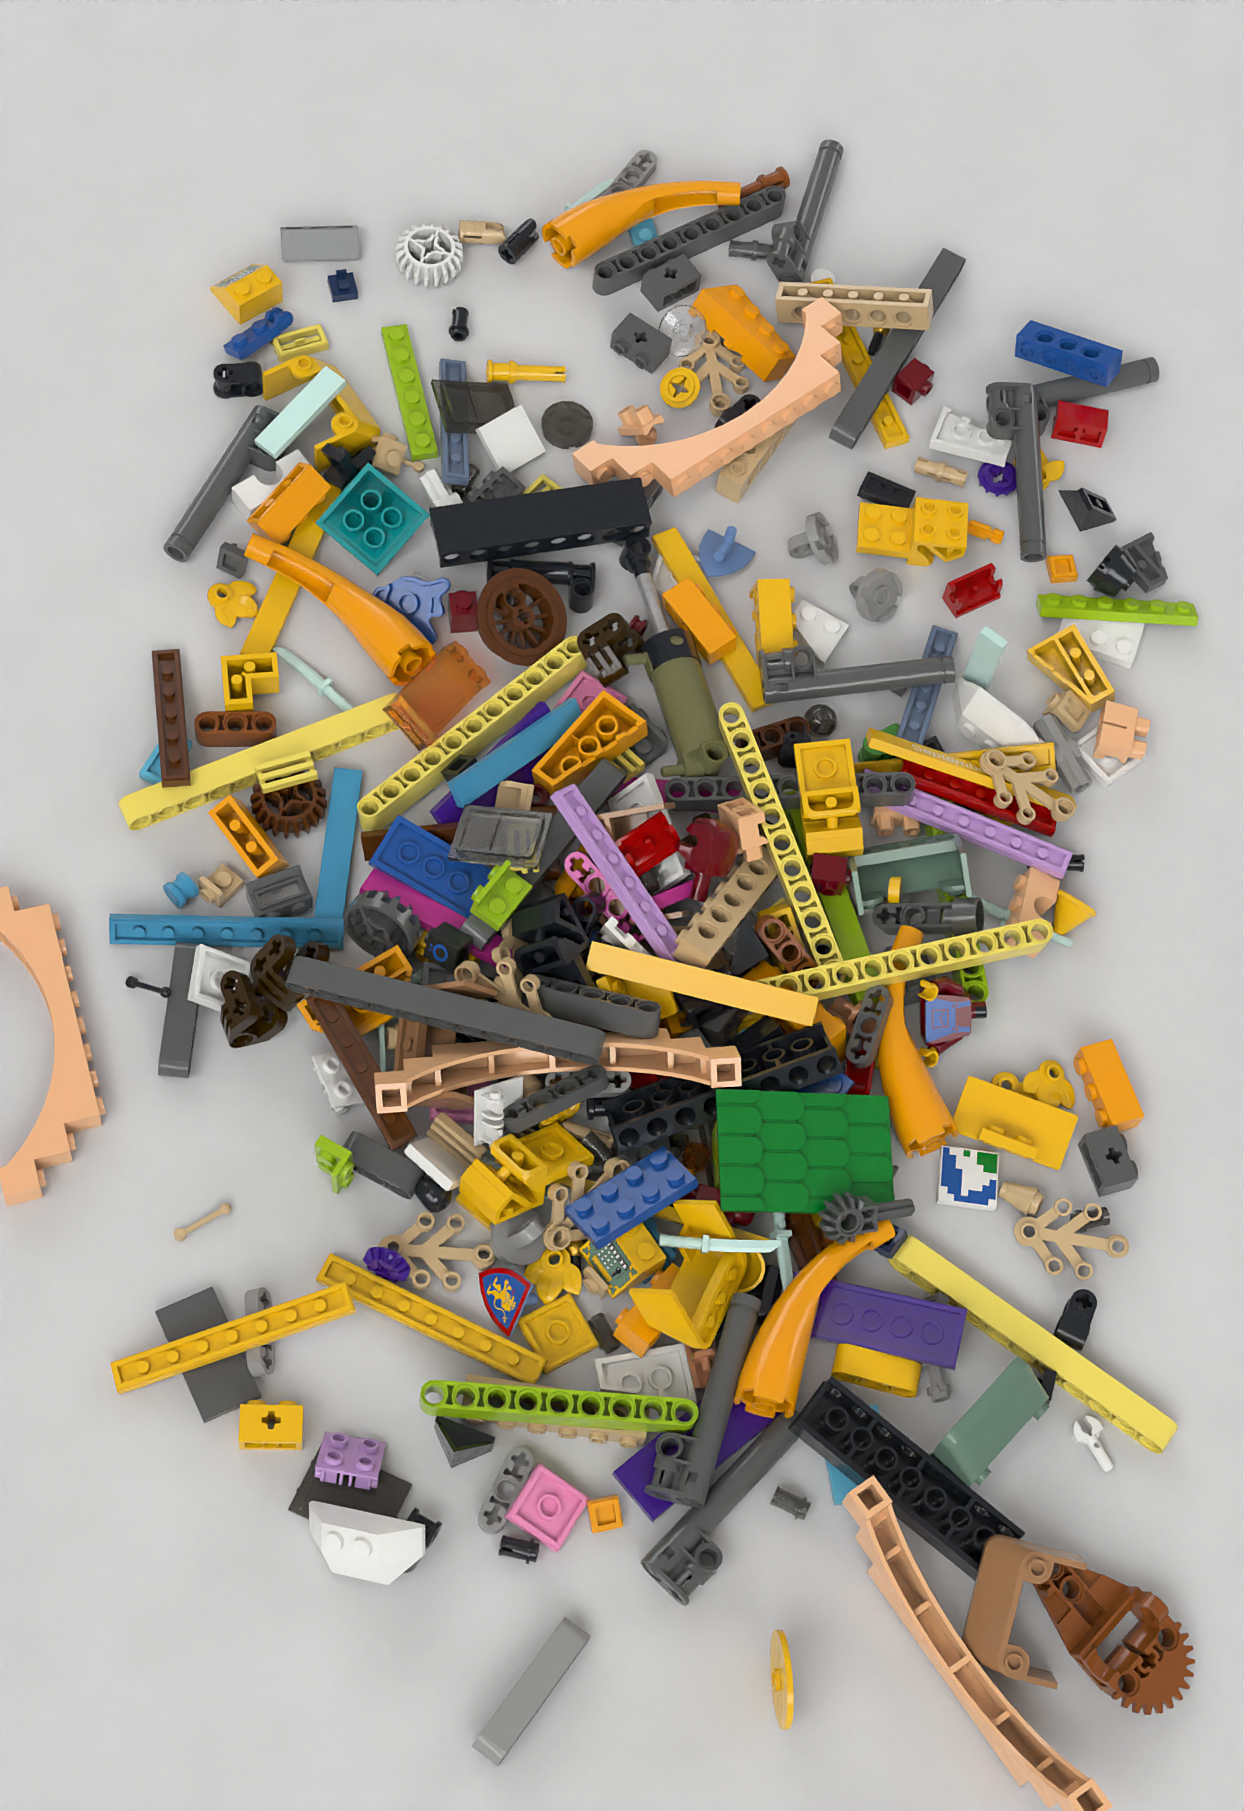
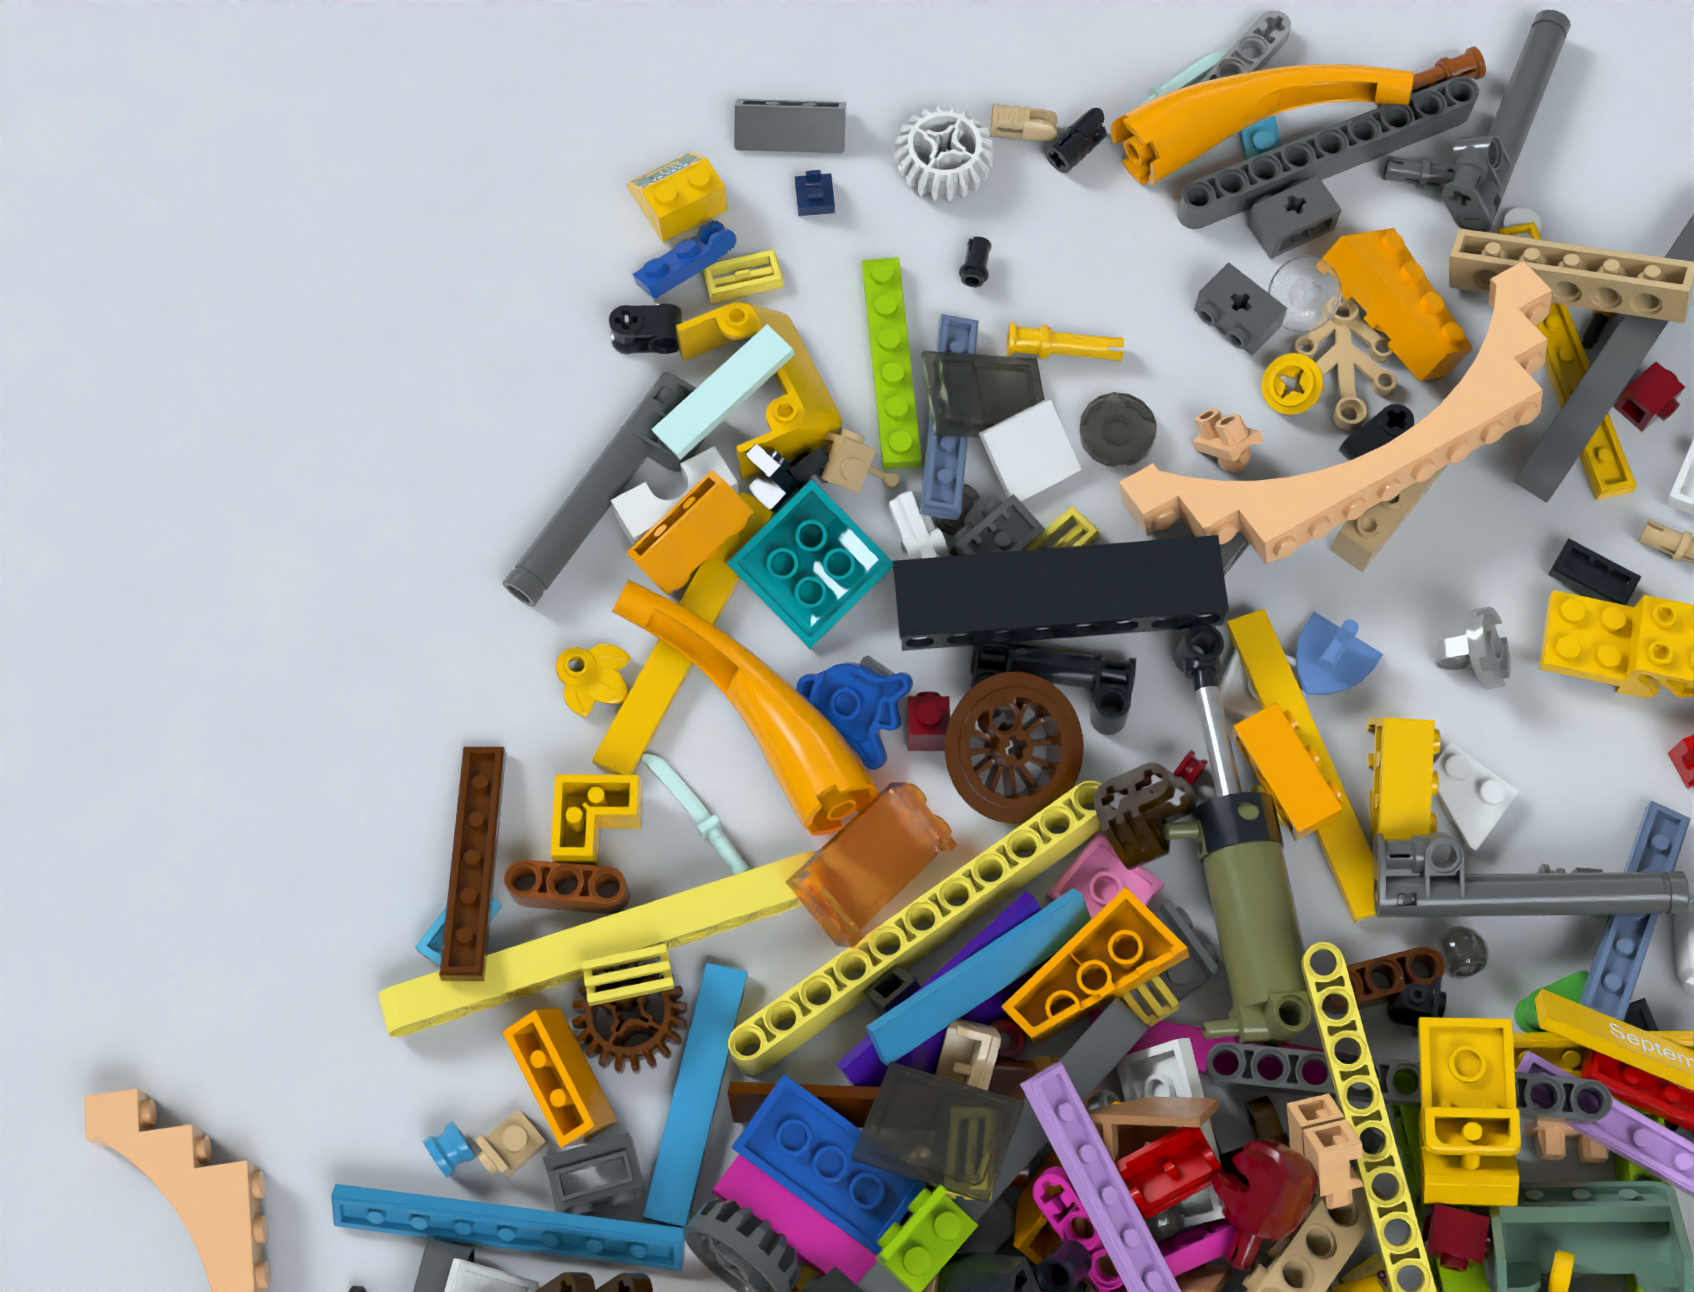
camera: 20 degrees right, 5 degrees up
(232, 560) = (596, 611): dark grey tile -> none
(876, 594) = (1566, 747): light grey tile -> none

